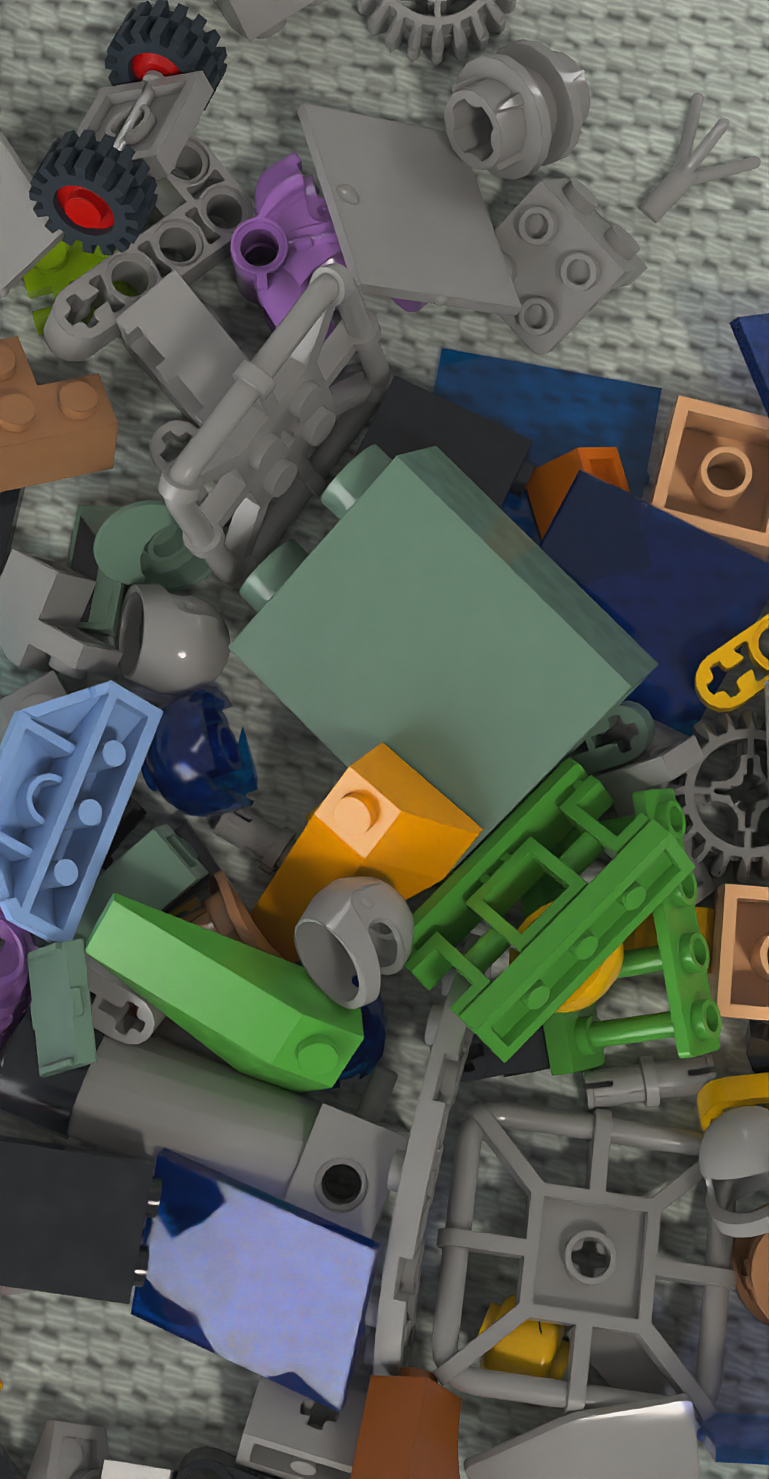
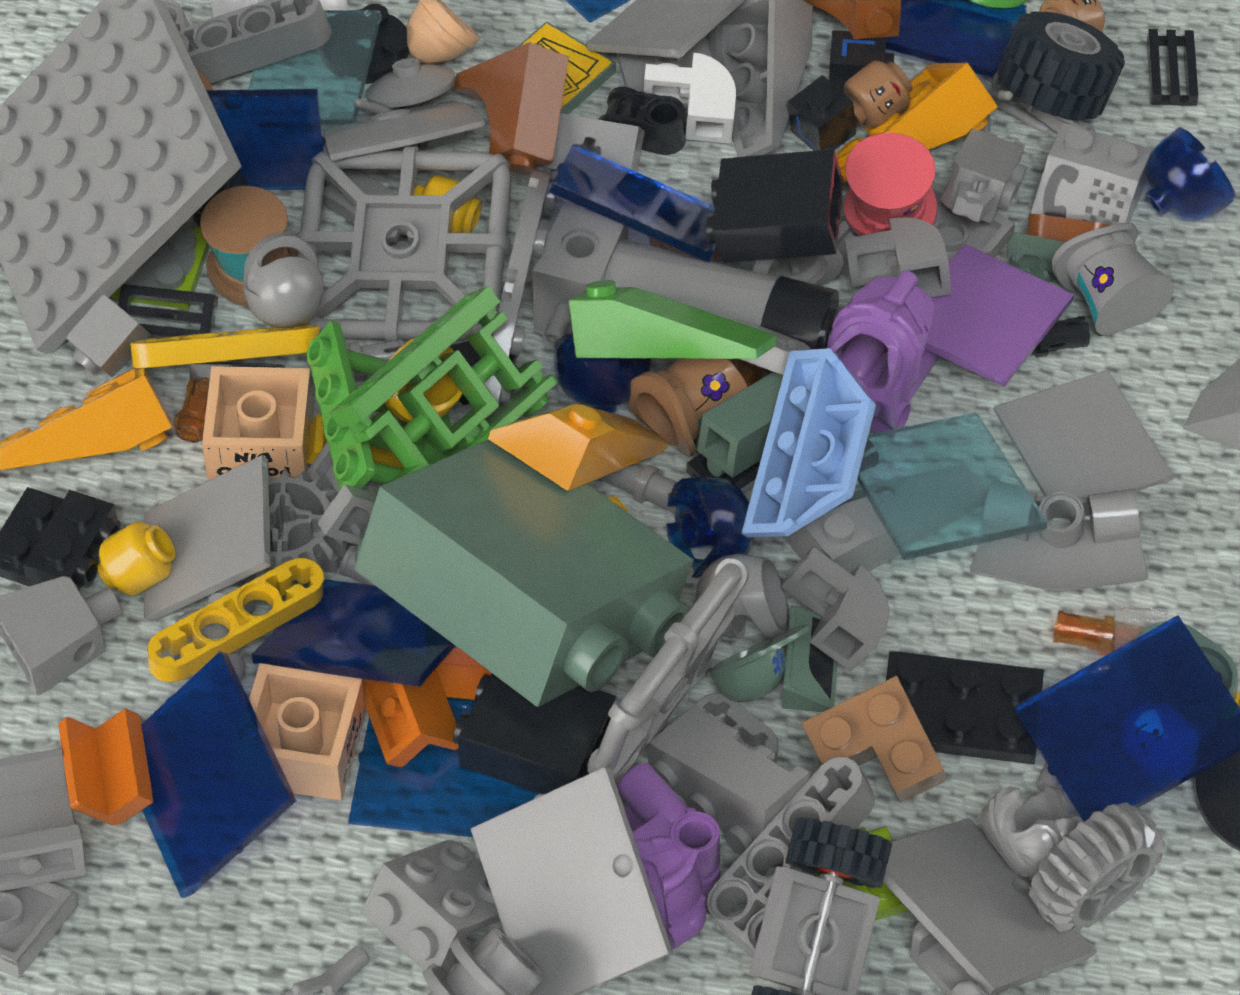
camera: 175 degrees right, 30 degrees down
(61, 1007) = (788, 309): sand green piece -> none
(351, 931) = (582, 371): light grey helmet -> none

